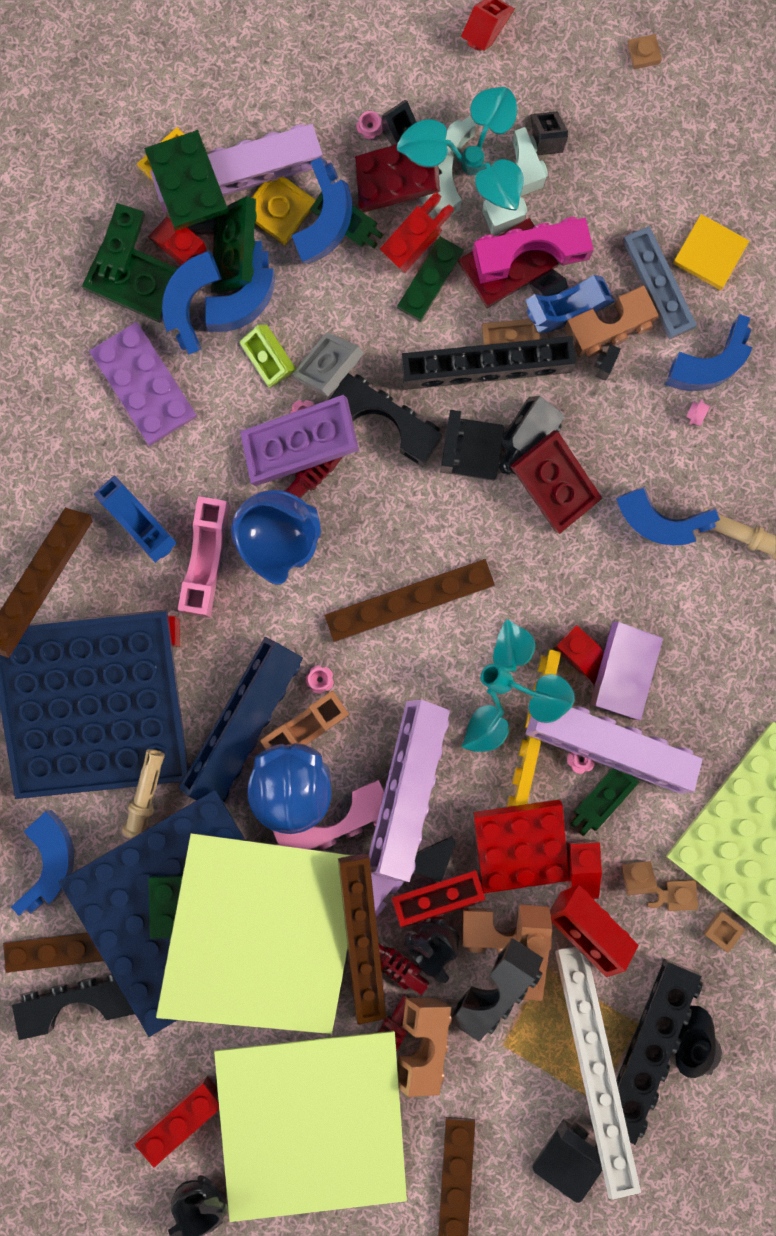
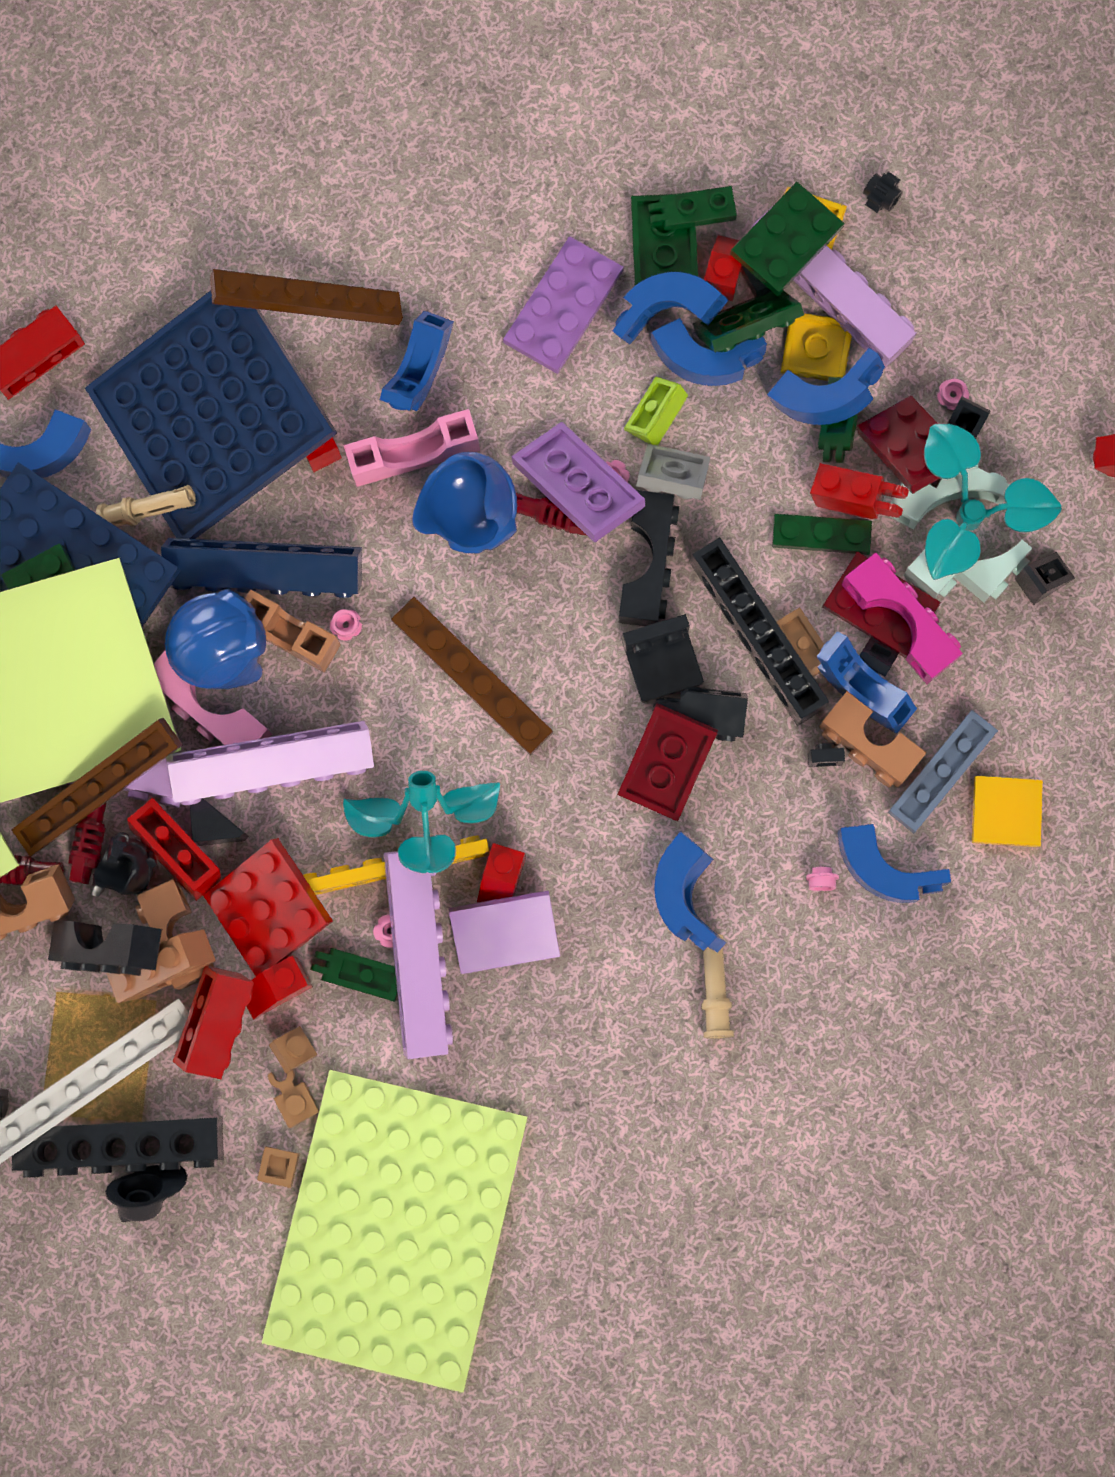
camera: 75 degrees right, 5 degrees down
(181, 92) = (882, 192): none -> black gear

